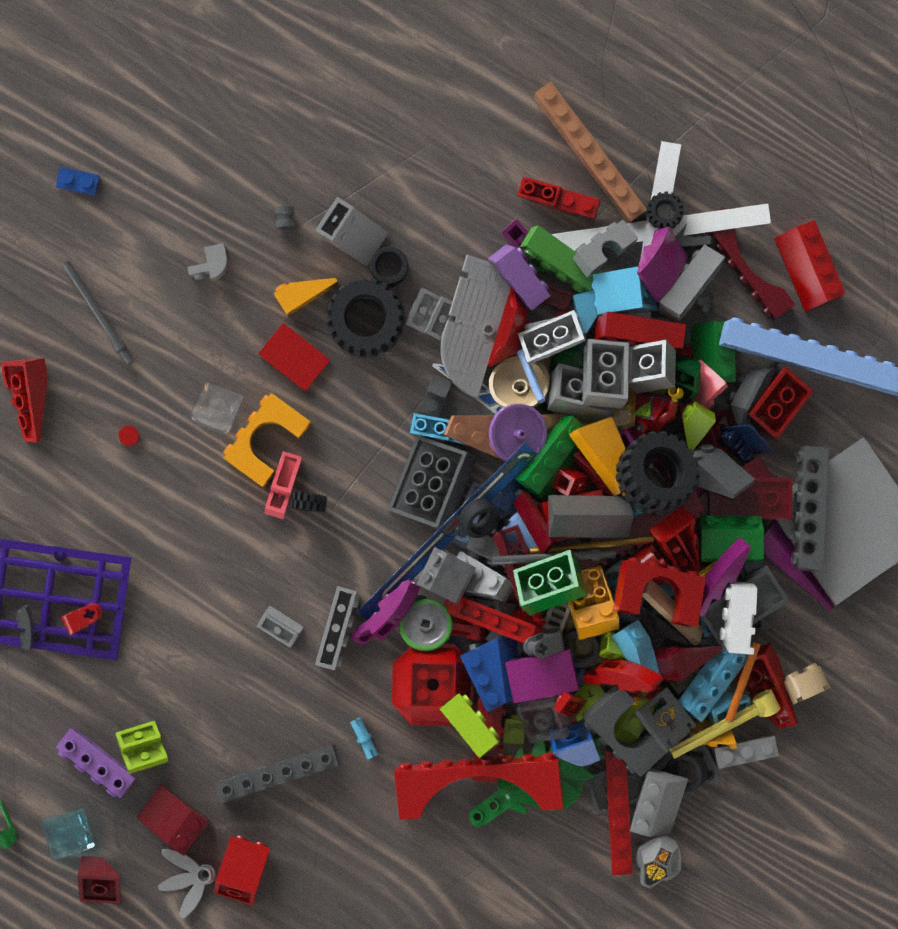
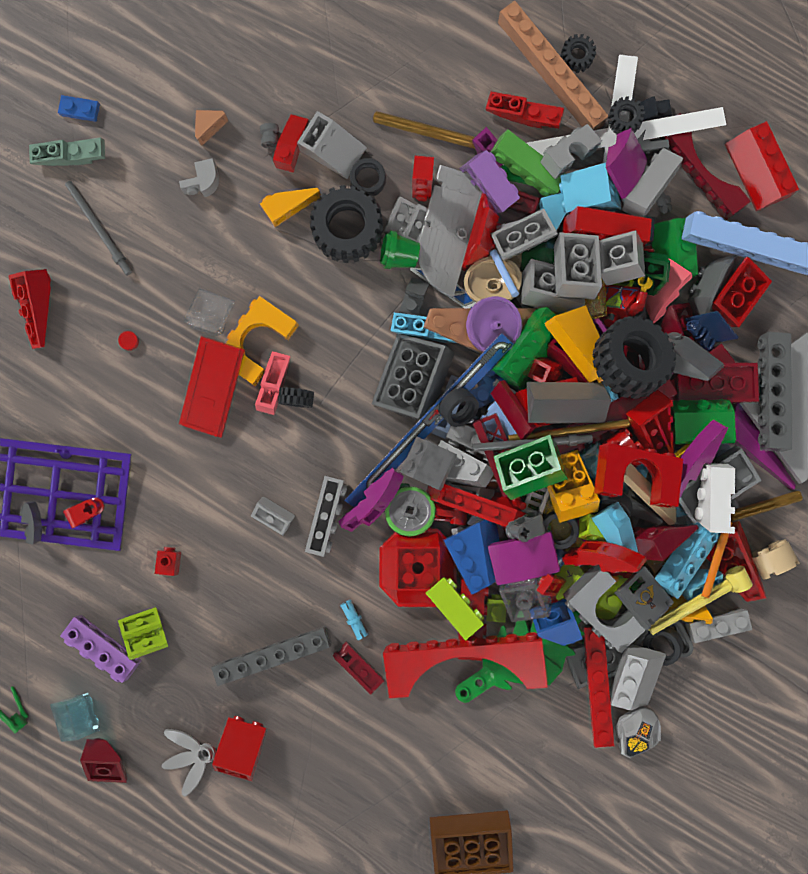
camera: 10 degrees right, 0 degrees up
(66, 231) = (67, 153): none -> sand green slope
(168, 672) = (168, 561): none -> red brick
(173, 820) = (174, 702): dark red slope -> none
(217, 203) = (208, 123): none -> nougat slope
(218, 488) = (211, 386): none -> red piece
(294, 357) = (281, 264): red tile -> none
(306, 224) = (287, 147): none -> red slope
(368, 789) = (359, 668): none -> dark red plate
(420, 348) = (399, 251): none -> green piece
(447, 273) = (422, 177): none -> red arch
(450, 214) = (423, 129): none -> pearl gold axle
(618, 124) = (581, 43): none -> black tyre
(697, 423) = (665, 311): lime slope -> none
(698, 201) = (656, 109): none -> black slope
(796, 629) = (766, 505): none -> pearl gold axle

